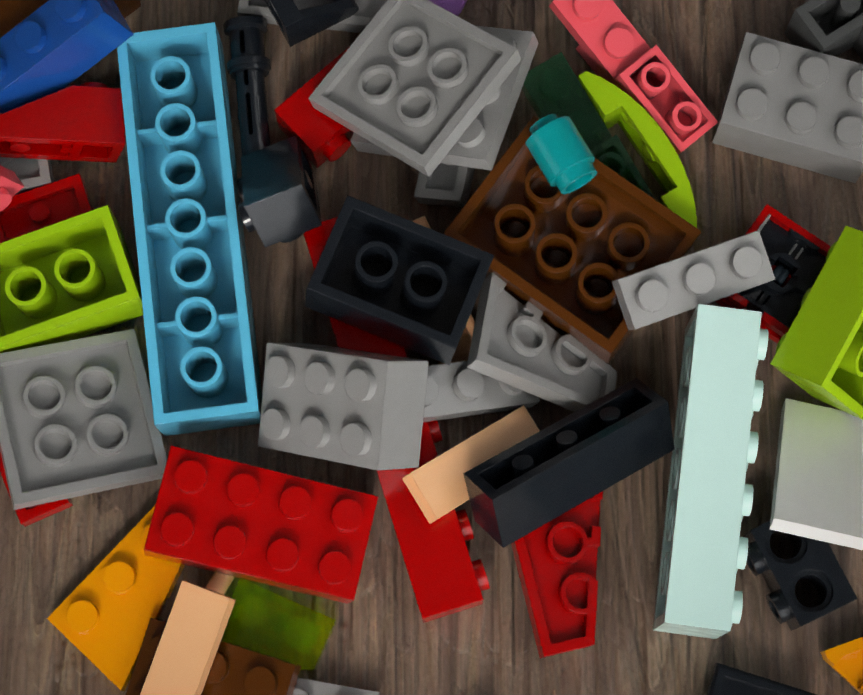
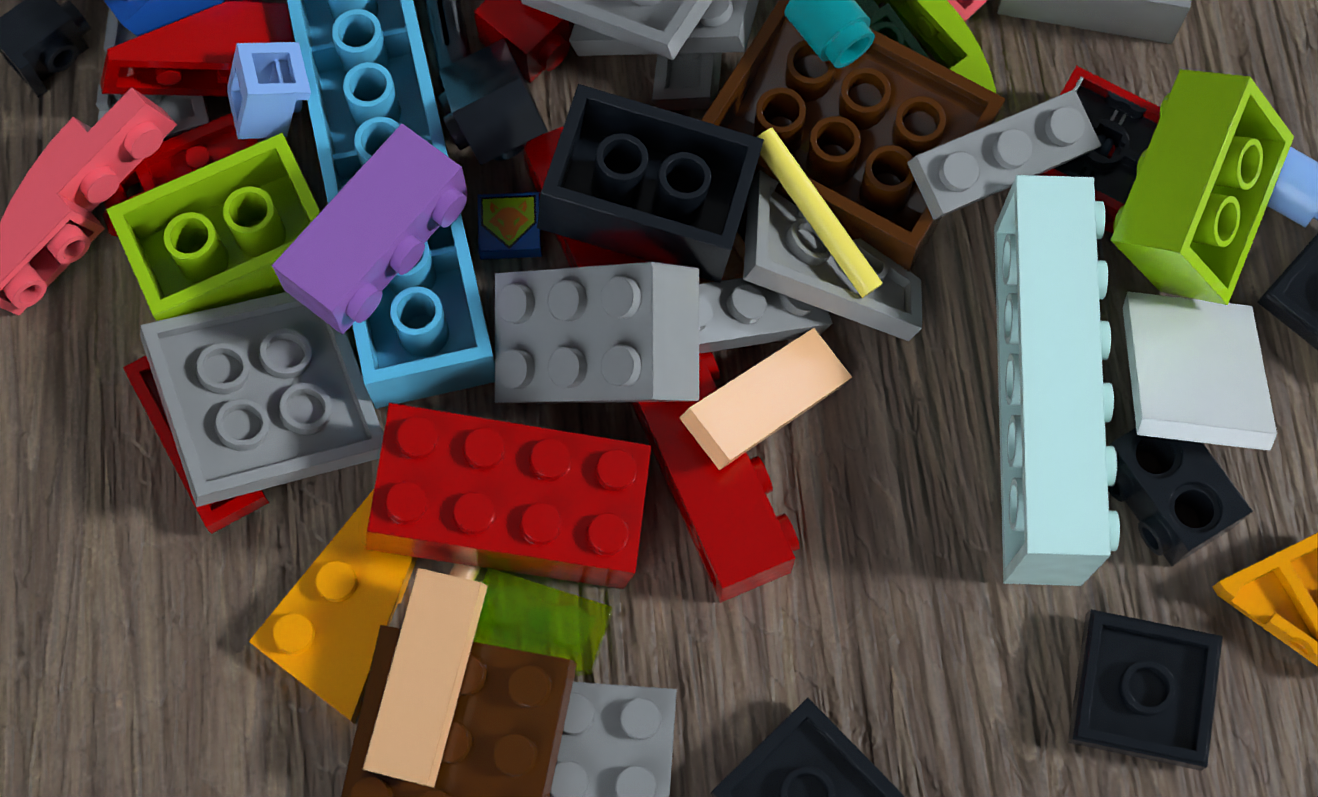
camera: 10 degrees left, 5 degrees down
(98, 165) = (266, 88): none -> light blue brick
(172, 299) = (373, 230): none -> medium lavender brick
(285, 291) = (509, 225): none -> tile
(534, 316) = (818, 214): none -> light yellow bar
(560, 578) = (876, 507): red wing -> none
(569, 462) = (880, 382): black brick -> none

